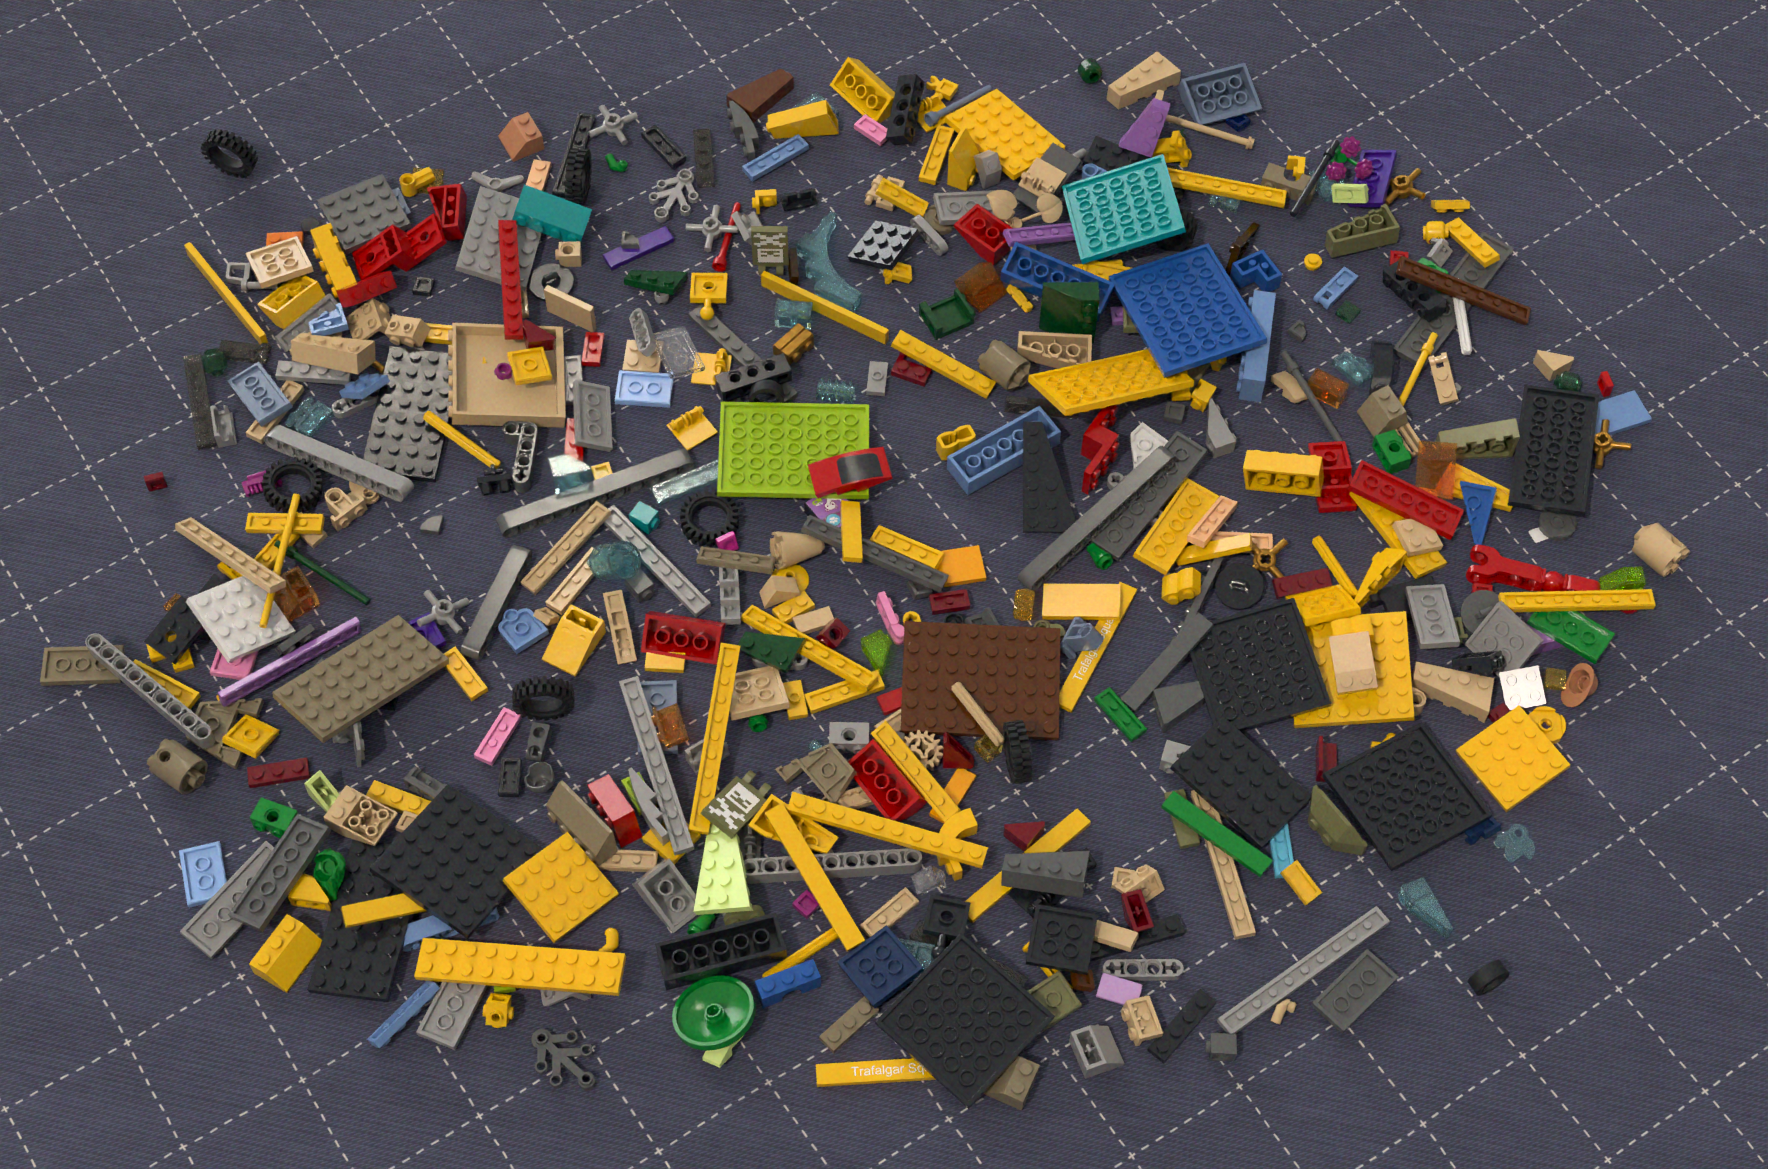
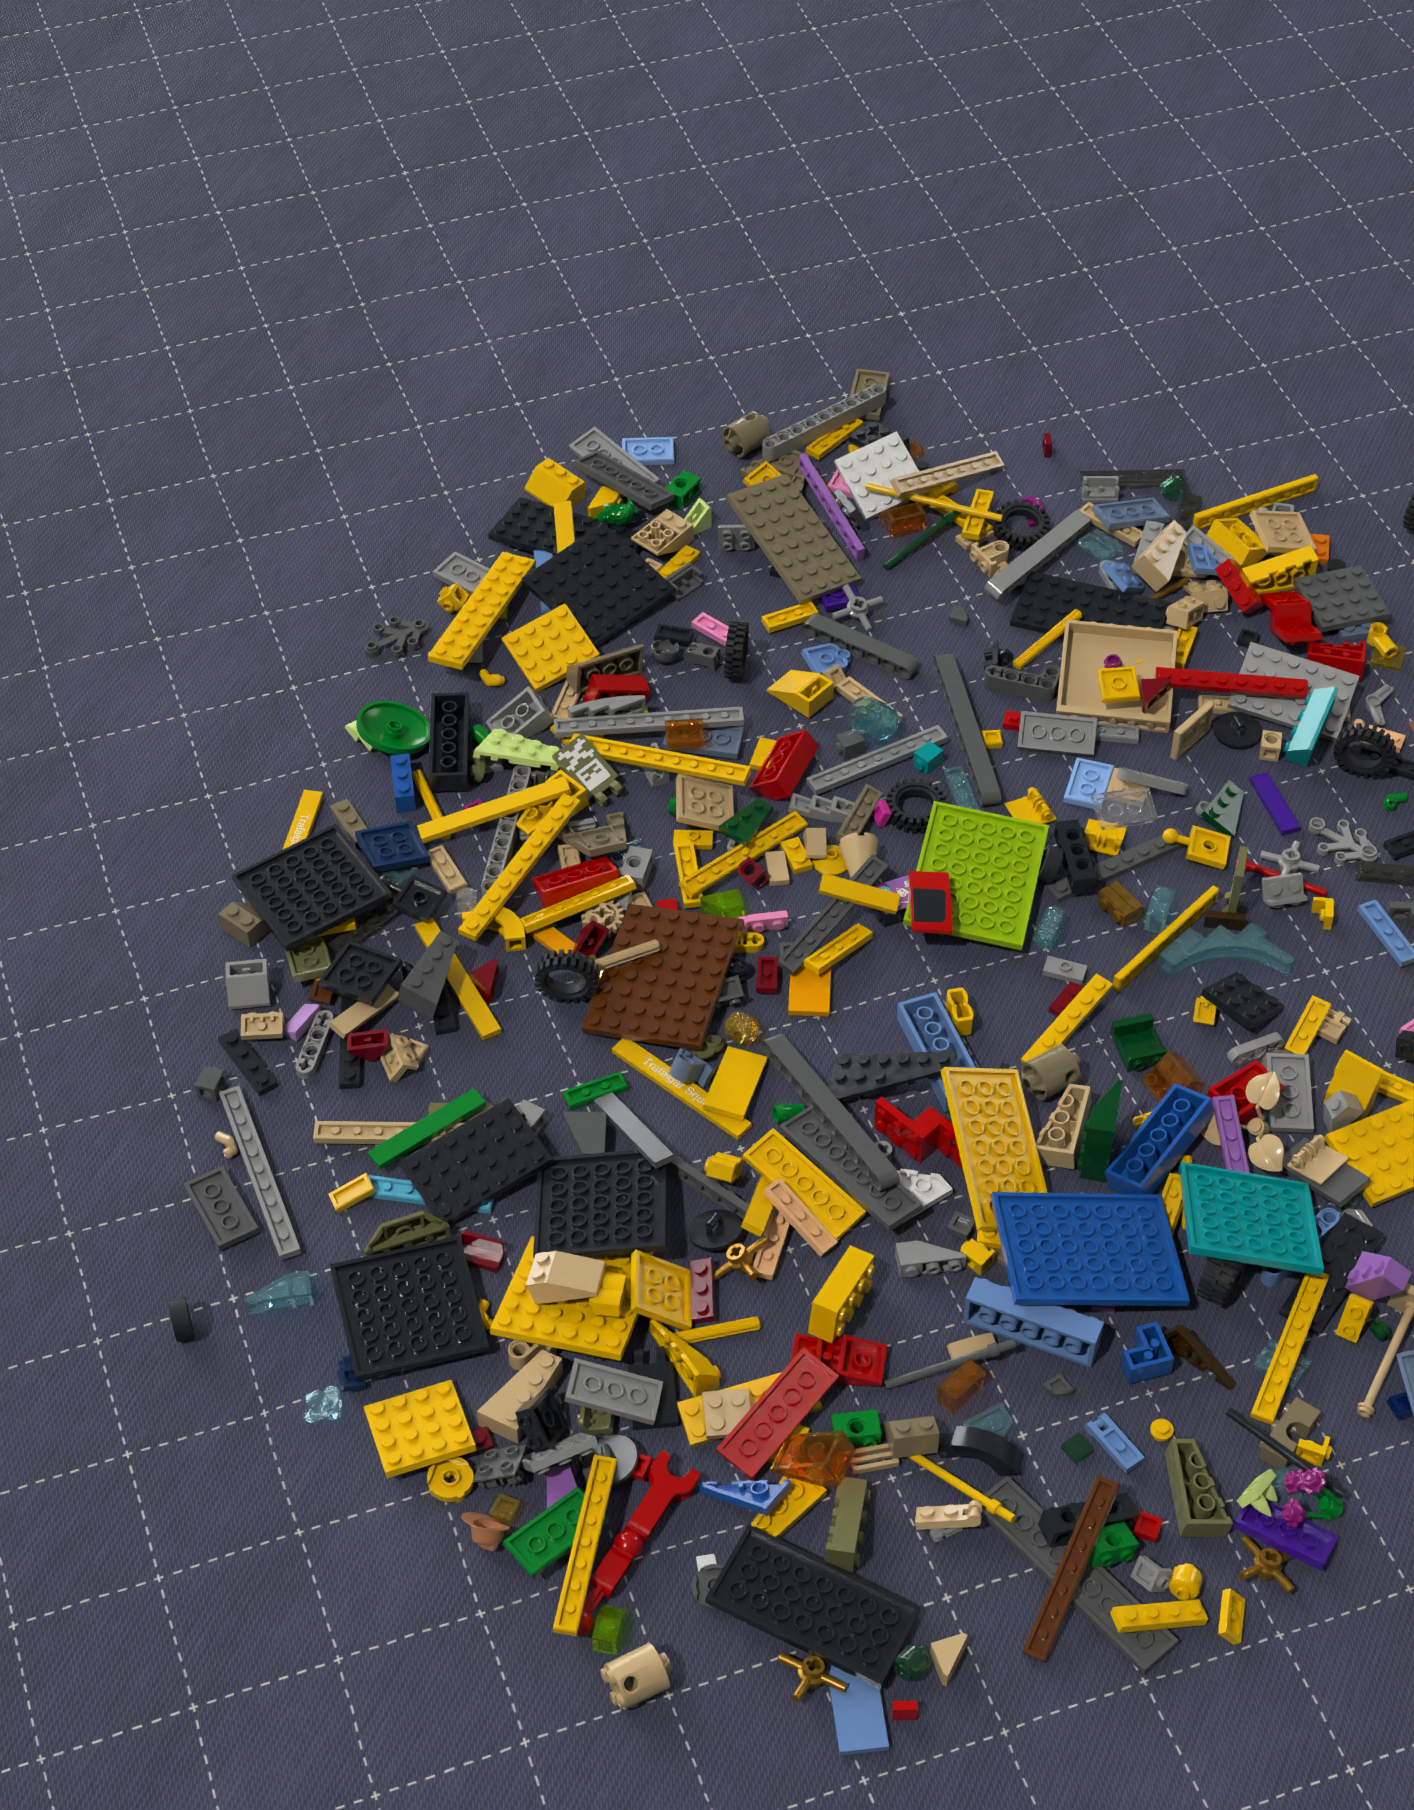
camera: 105 degrees right, 10 degrees down
(278, 772) = (725, 510): dark red plate -> none
(408, 1009) = (472, 545): medium blue plate -> none
(565, 548) = (908, 699): tan tile -> none
(568, 472) = (986, 701): clear light blue slope -> none
(593, 349) = (1144, 749): plate -> none
(619, 627) = (816, 725): tan slope -> none
(629, 241) = (1281, 792): dark grey tile -> none
(798, 200) = (1324, 943): black hinge -> none
(1462, 324) = (1029, 1561): white axle -> none

